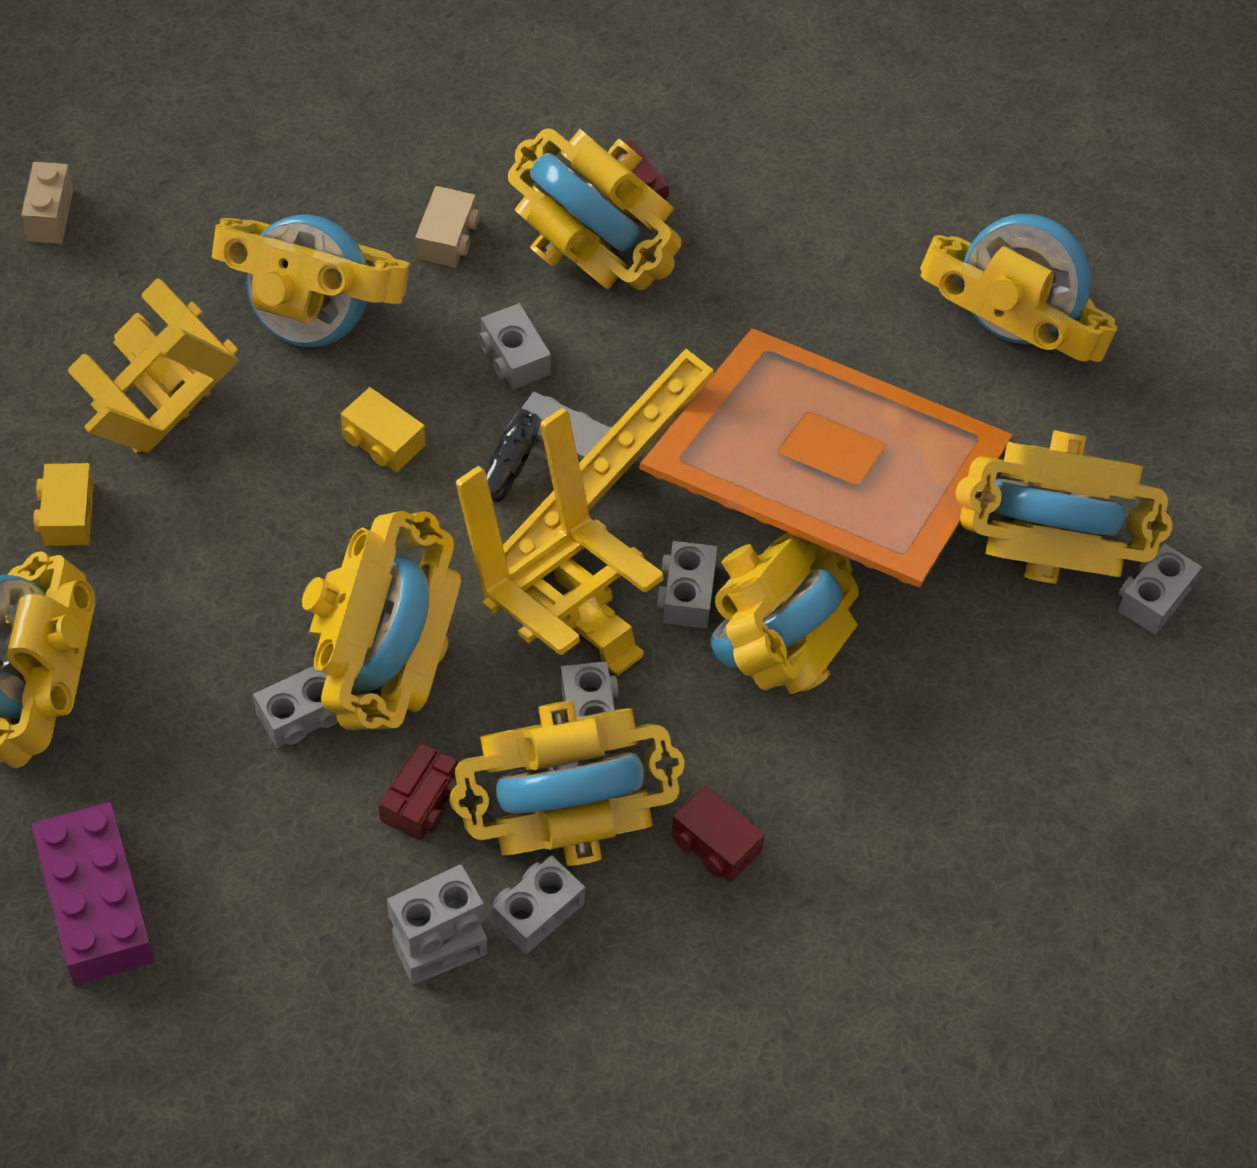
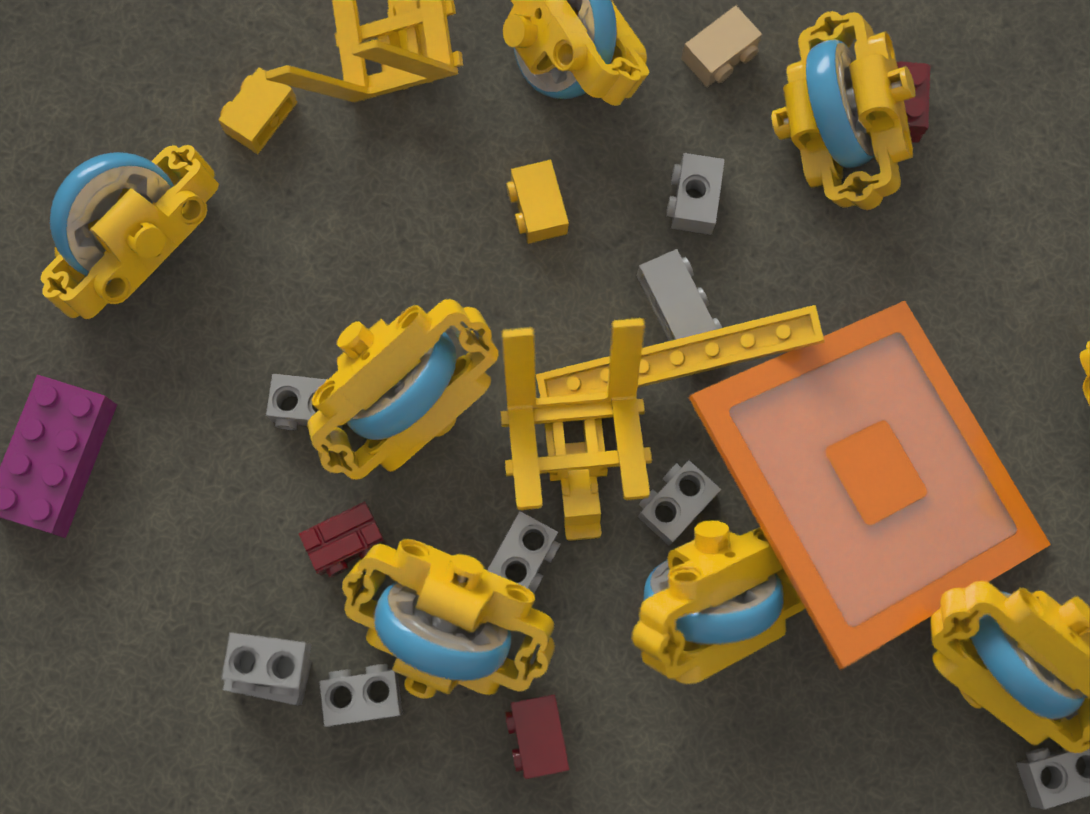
camera: 35 degrees right, 20 degrees up
(512, 453) = (619, 293): black hinge -> none

